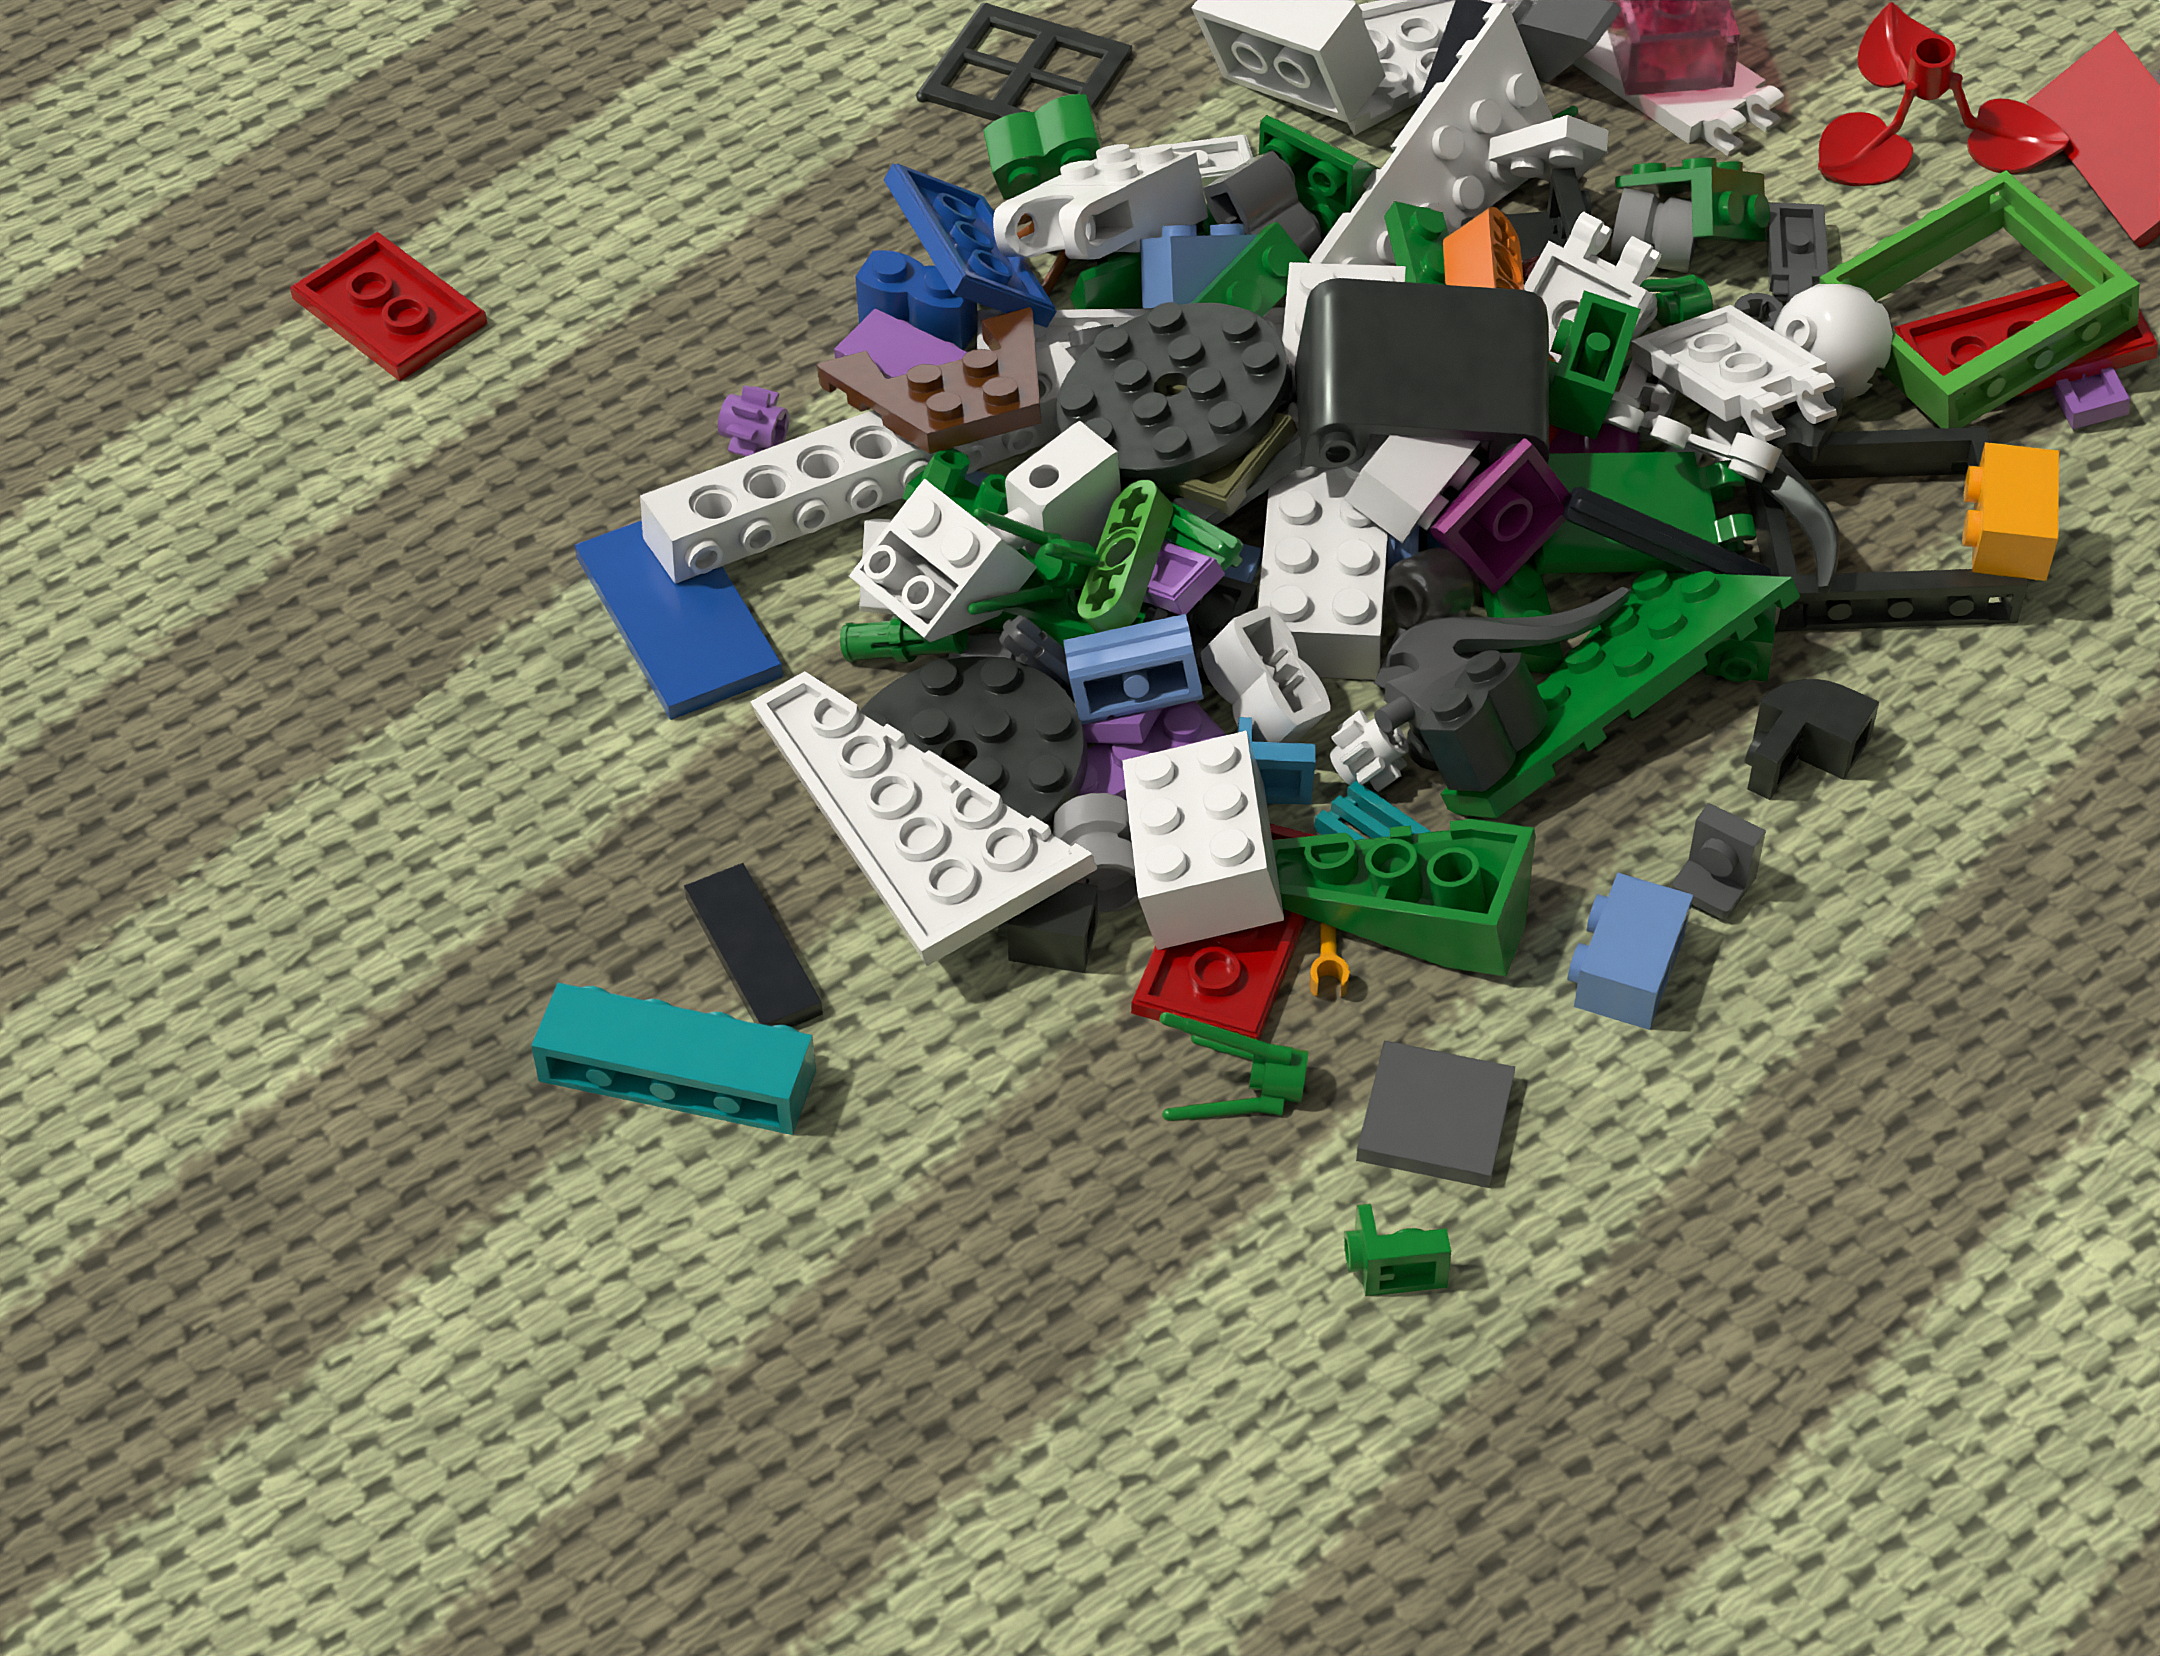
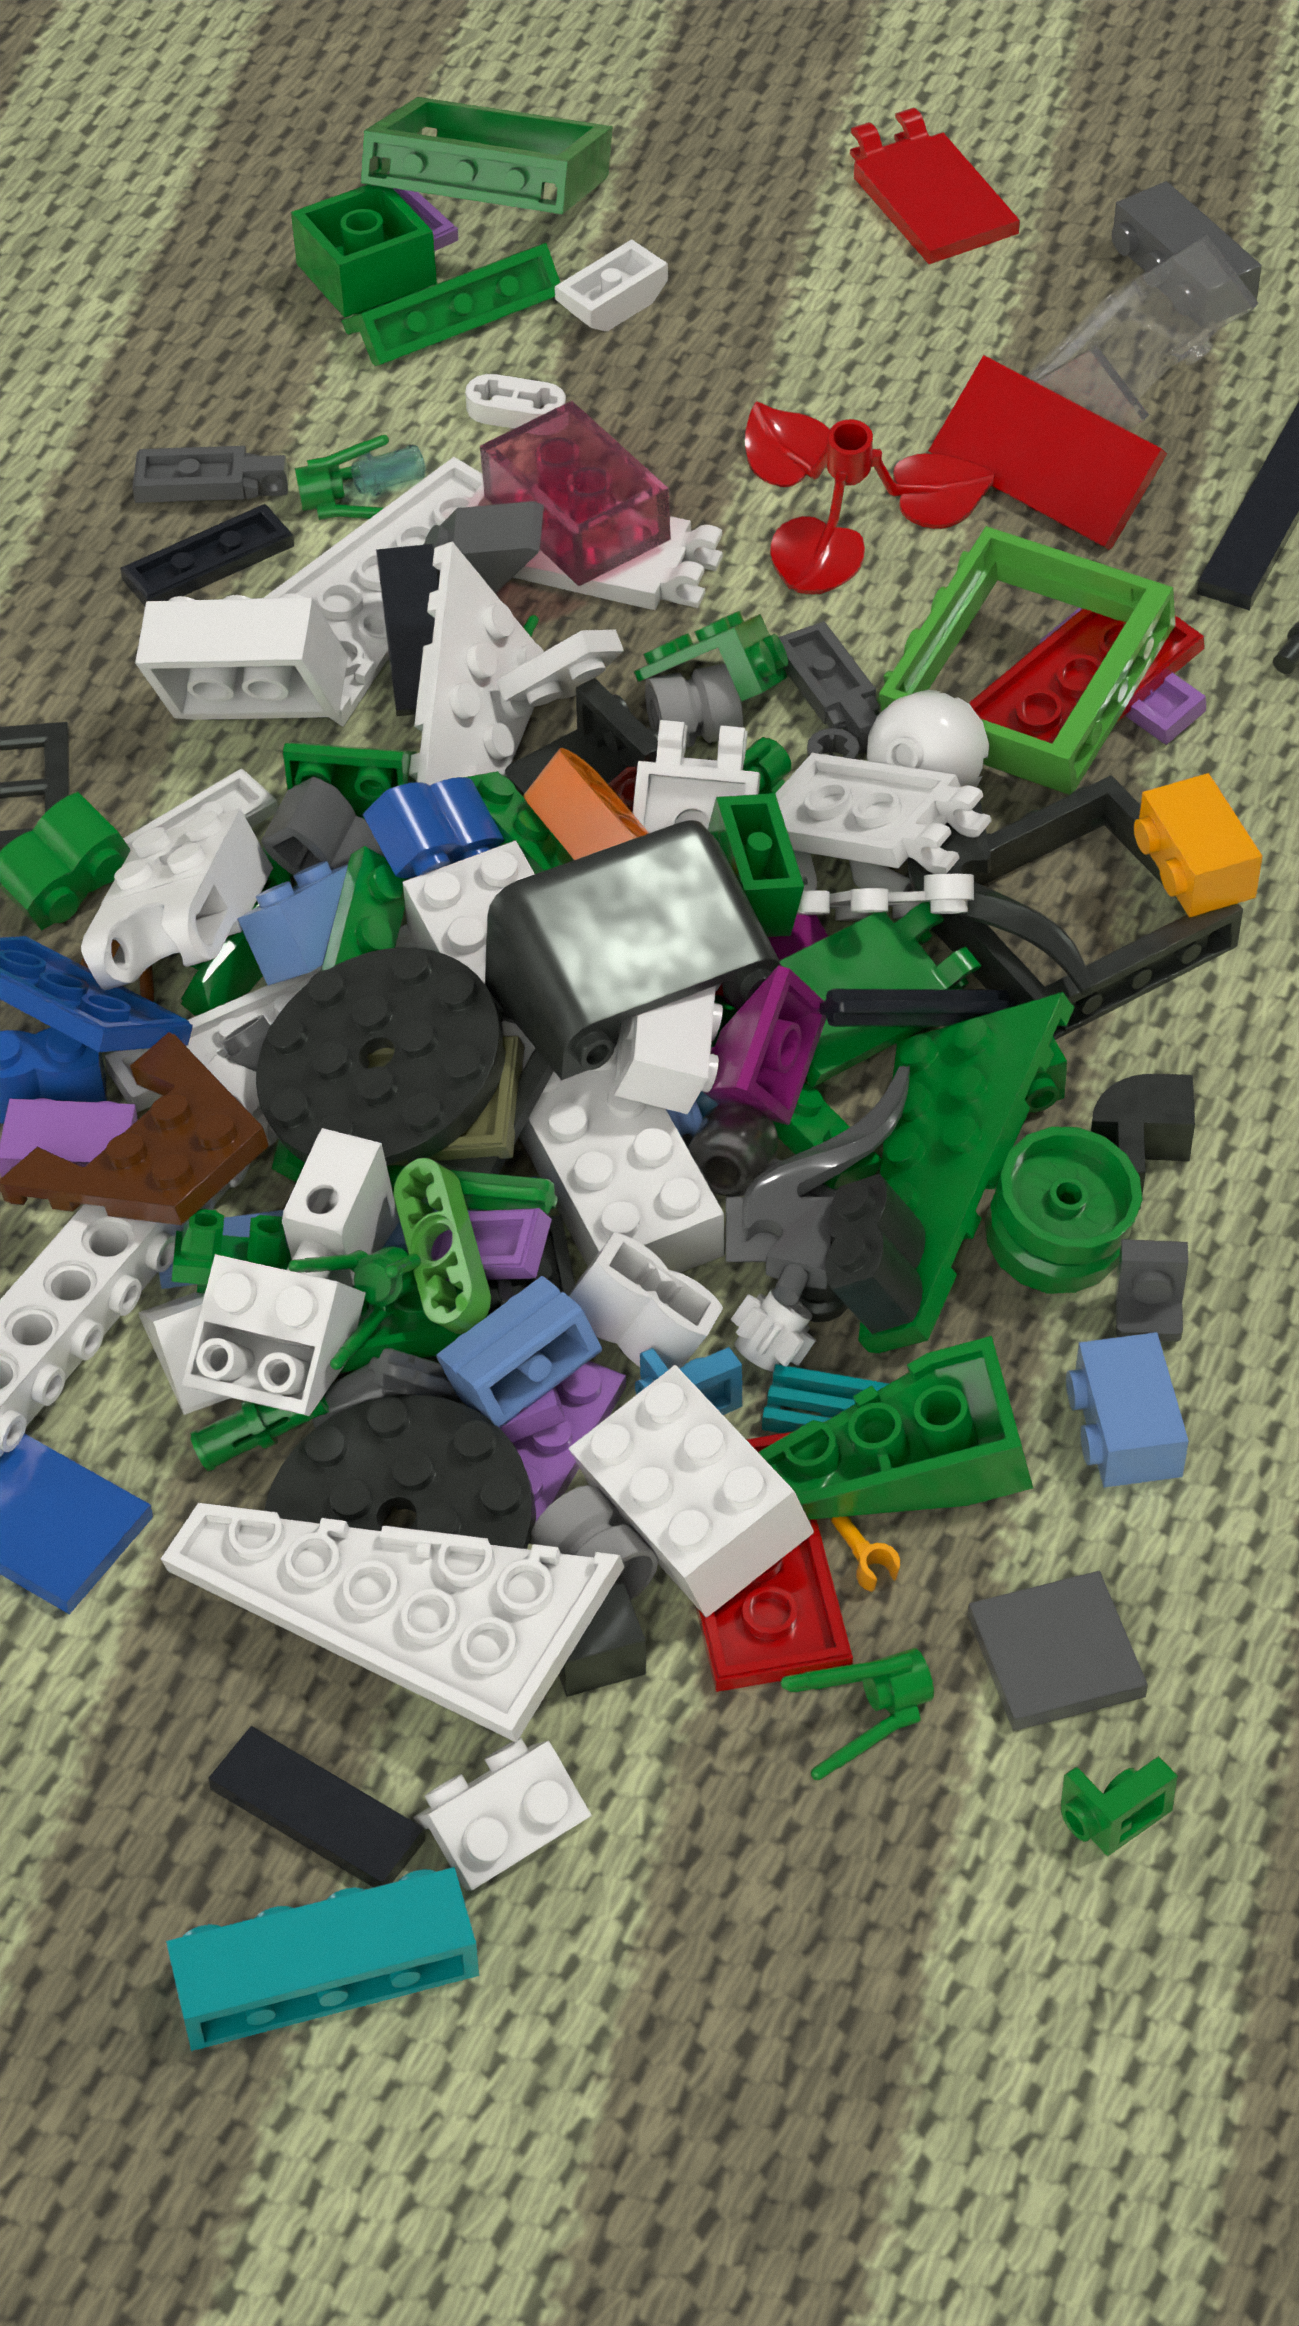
camera: 30 degrees left, 0 degrees up
(890, 1019) = (503, 1812): none -> white bracket
(1344, 226) = (431, 825): none -> blue brick
(1678, 753) = (1062, 1209): none -> green wheel

